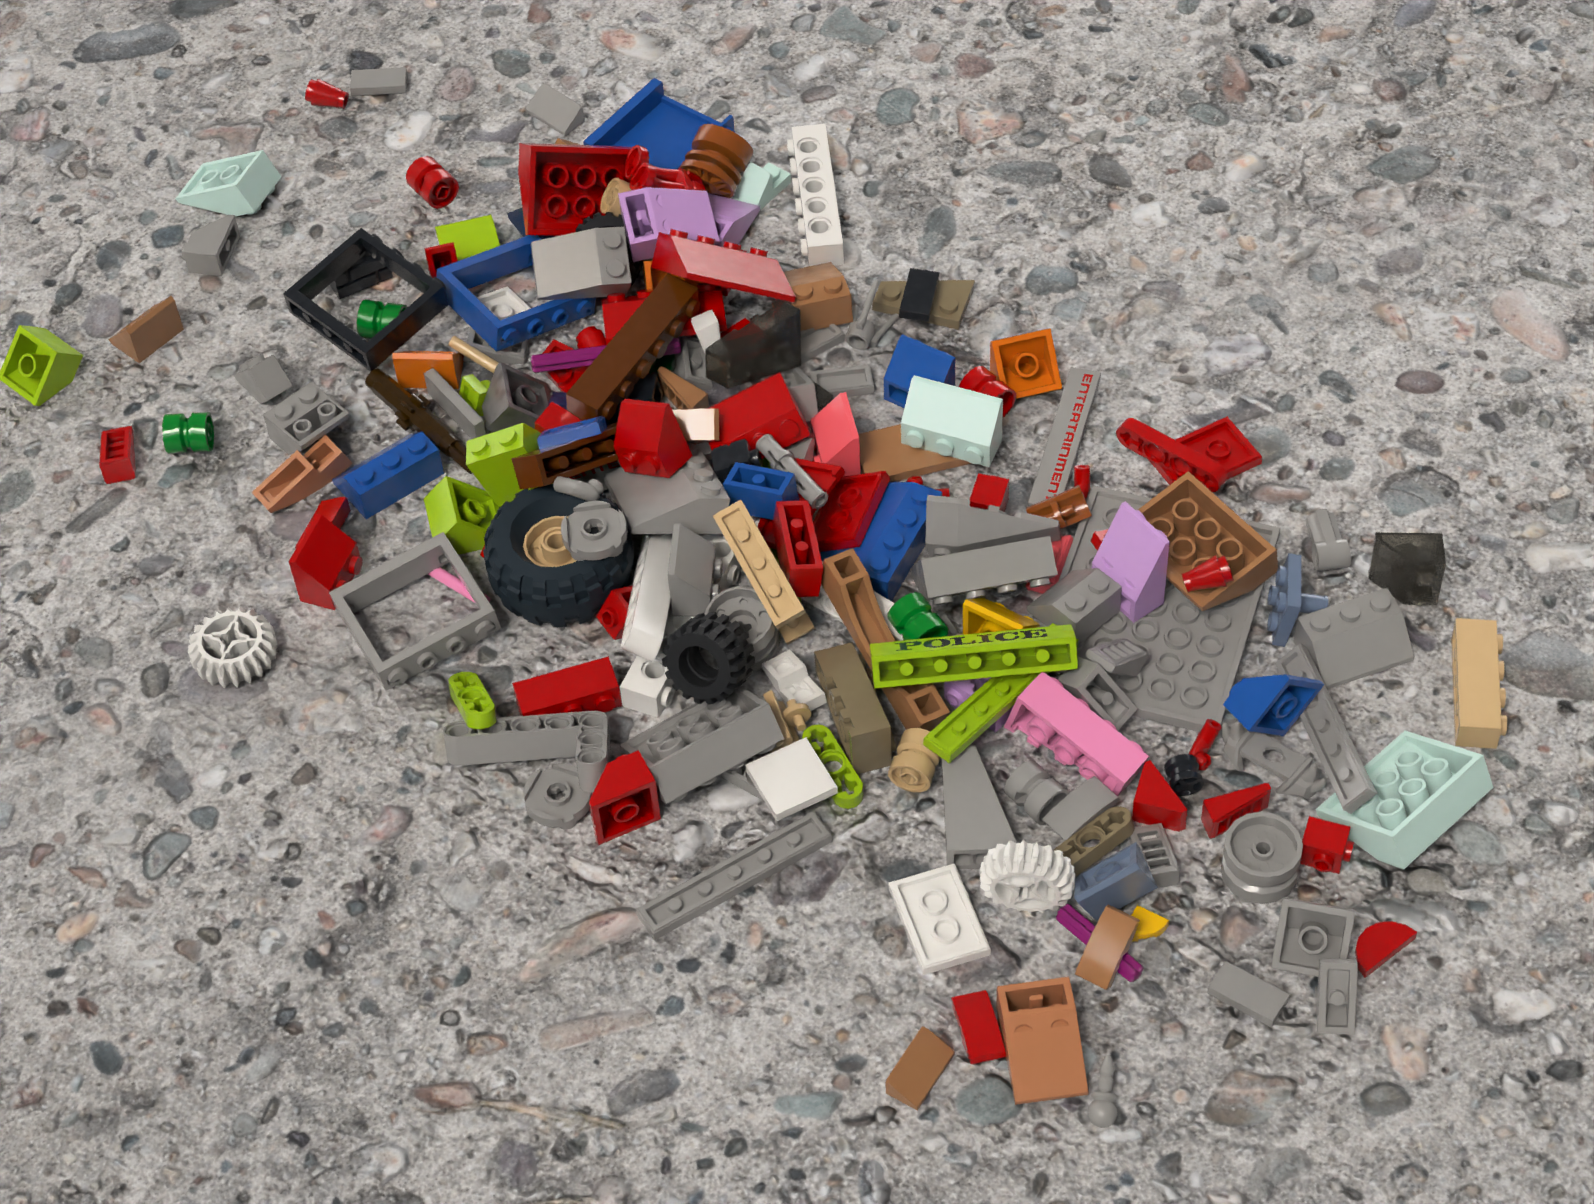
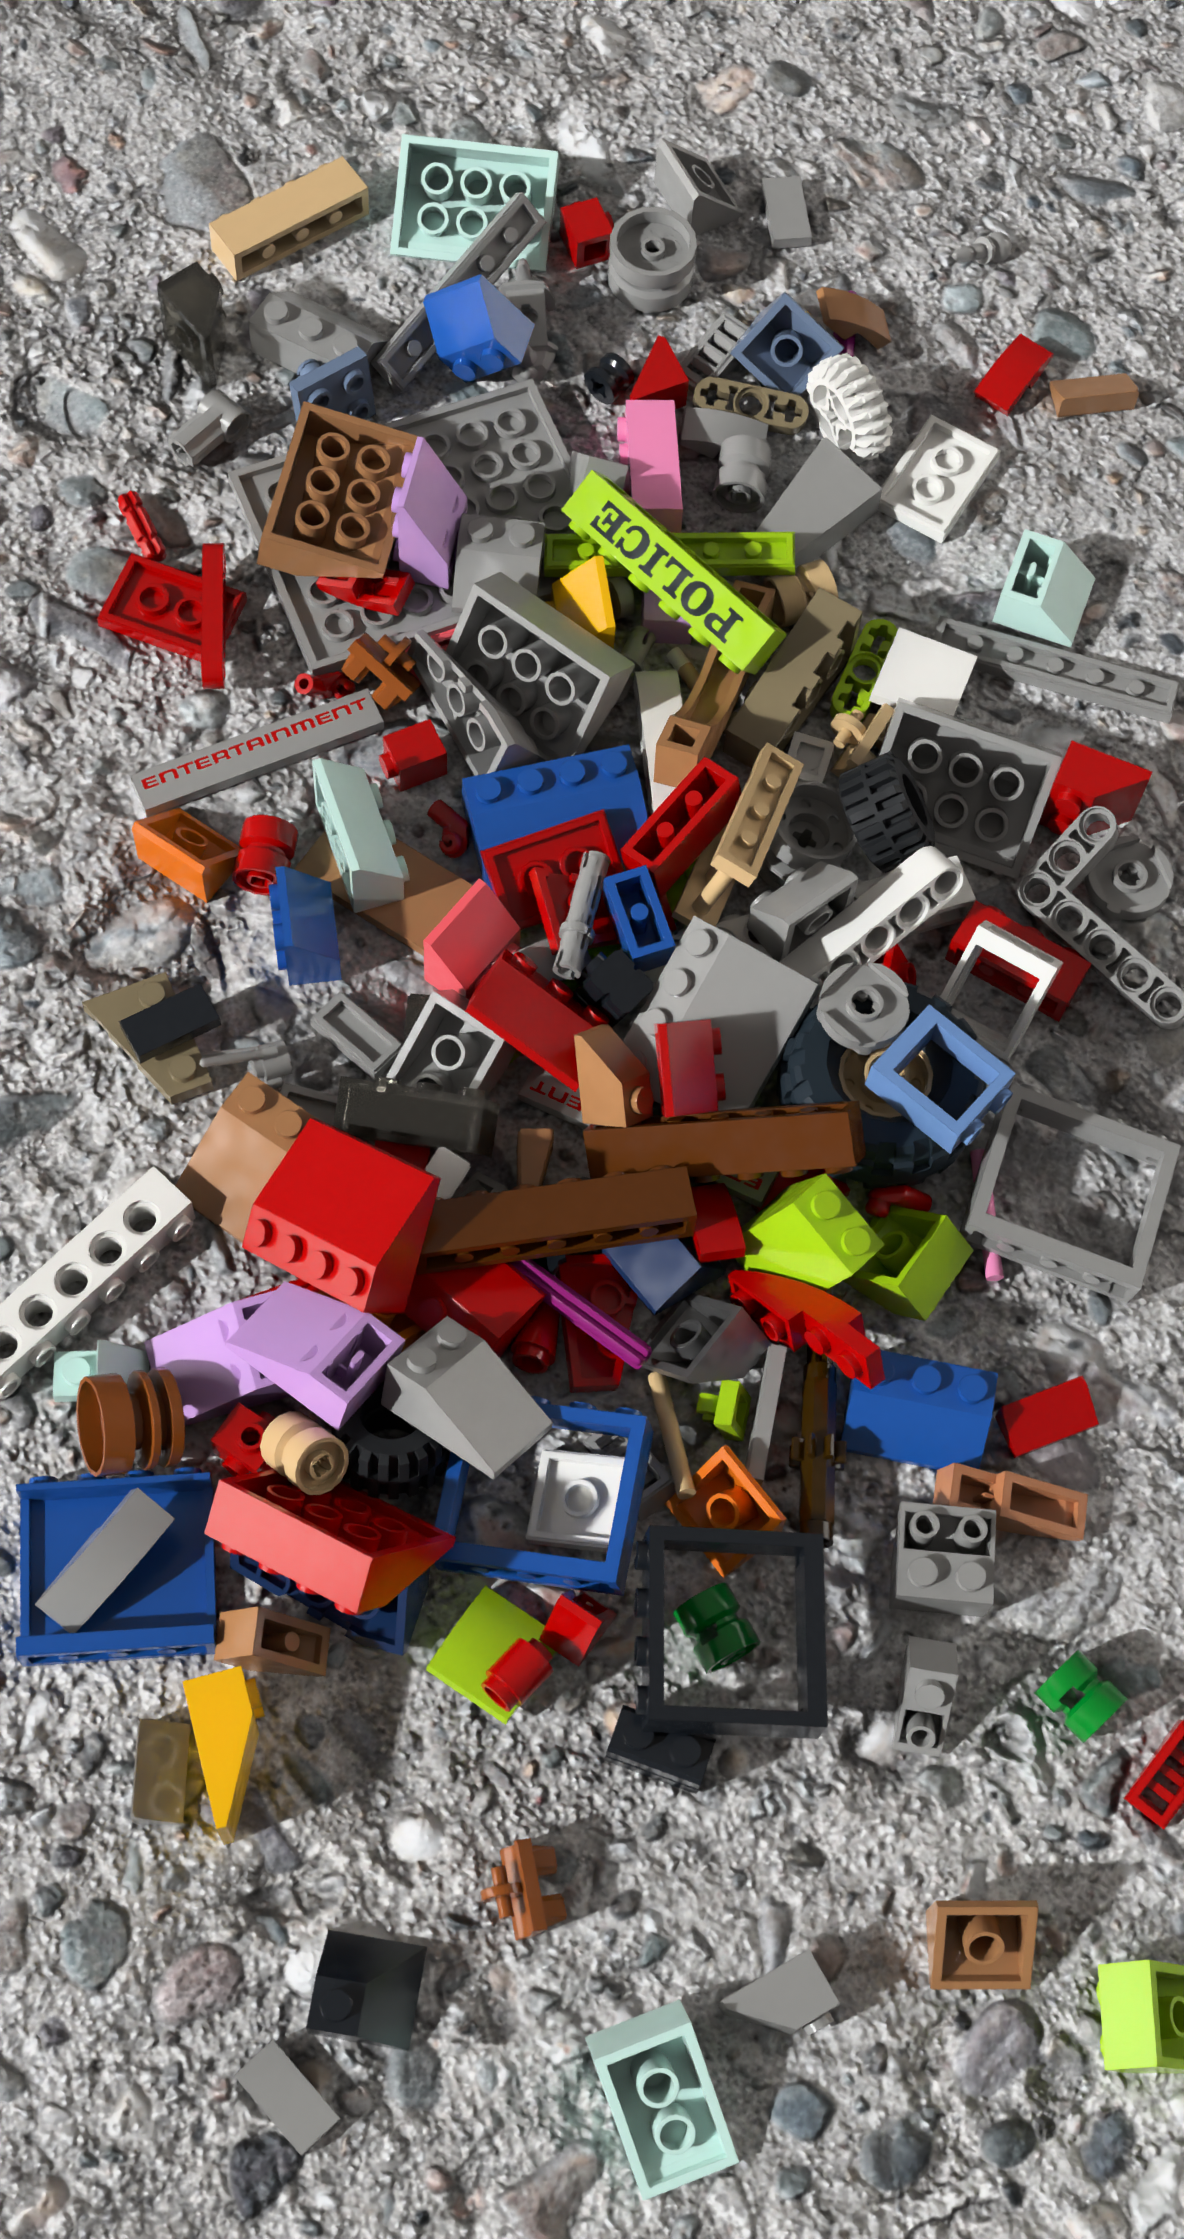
camera: 140 degrees left, 15 degrees up
(323, 562) = (1107, 1337): red slope -> none
(324, 94) = (380, 2142): red cone -> none
(363, 187) = (518, 1889): none -> dark orange hips
(387, 120) = (366, 1990): none -> black slope
(432, 182) = (435, 1796): red wheel -> none
(445, 227) = (518, 1673): none -> red brick
(452, 431) = (809, 1315): none -> red slope
(472, 700) = (1140, 1006): lime beam -> none
(521, 552) = (919, 1109): none -> medium blue window
(533, 114) = (226, 1734): none -> yellow slope
(561, 653) = (1019, 954): none -> white window
(571, 432) = (743, 1164): blue tile -> none
(586, 491) = (826, 1066): light grey arm -> none
(646, 175) = (253, 1448): red piece -> none
(665, 133) = (104, 1560): none -> light grey slope
(788, 896) = (1045, 590): none -> light aqua slope
(914, 618) = (664, 666): green wheel -> none
(1041, 1040) = (981, 316): nougat slope -> none
(1119, 657) = (544, 476): light grey slope -> none
(1204, 742) = (558, 390): red arm -> none
(1209, 574) = (387, 433): red cone -> none
(1223, 810) = (610, 318): red slope -> none
(1279, 473) = (141, 526): none -> red axle
(1336, 996) = (735, 144): light grey slope -> none
(1381, 943) = (640, 147): red tile -> none

